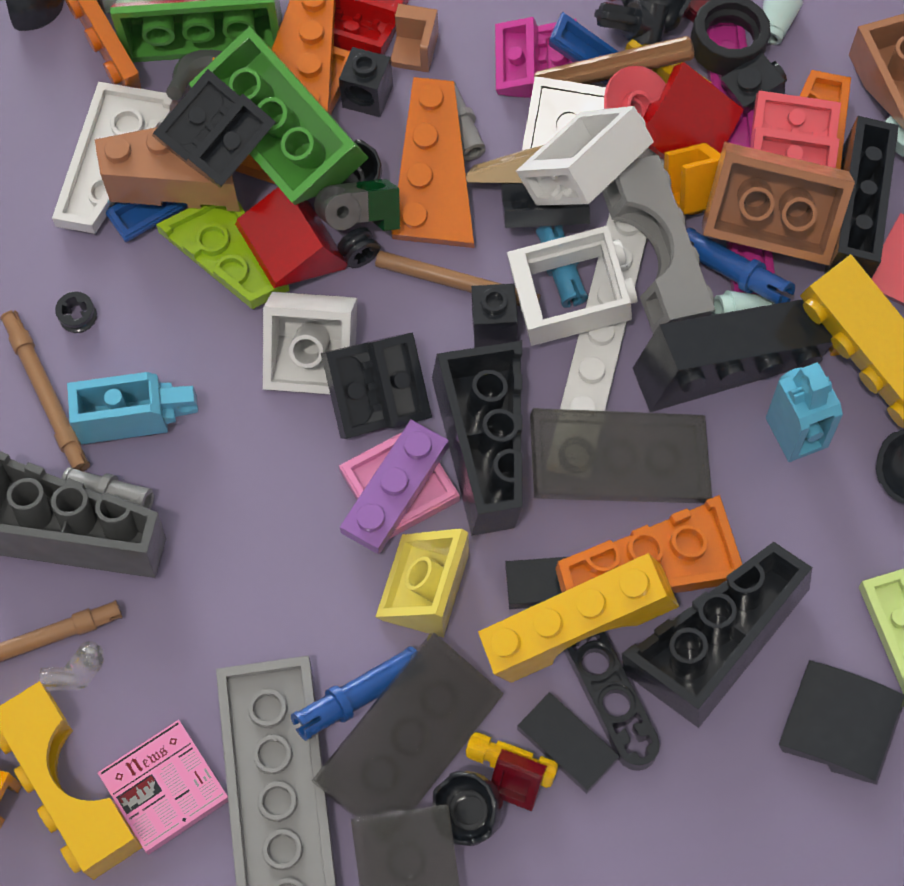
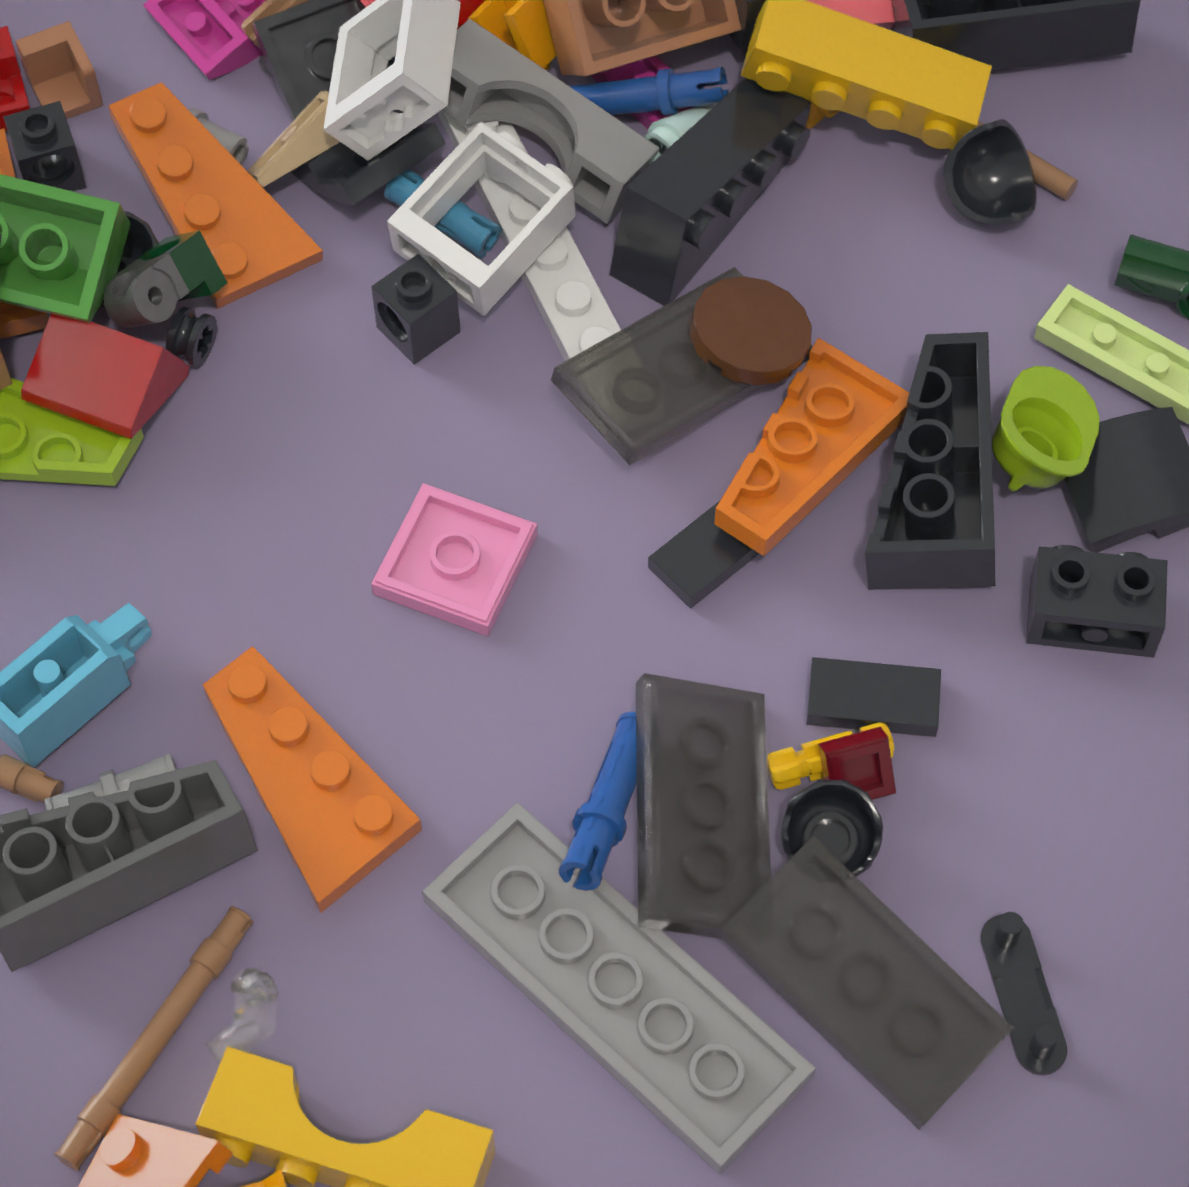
camera: 40 degrees left, 5 degrees down
(163, 787) = (466, 1061): bright pink tile -> none
(214, 564) = (317, 789): none -> orange wing
(298, 332) = (223, 474): white slope -> none
(376, 385) = (345, 466): black slope -> none
(394, 487) = (459, 560): medium lavender plate -> none
(425, 580) = (578, 634): light yellow slope -> none
(432, 273) = (296, 314): medium nougat bar -> none
(483, 422) = (512, 435): black wedge -> none
(609, 601) = (767, 580): yellow arch -> none
(614, 681) = (867, 601): black beam -> none
(676, 463) = (750, 330): none -> reddish brown tile
(750, 783) = (1097, 601): none -> black brick
(804, 412) = (841, 188): medium azure hinge -> none
(806, 652) = (1045, 428): none -> lime piece

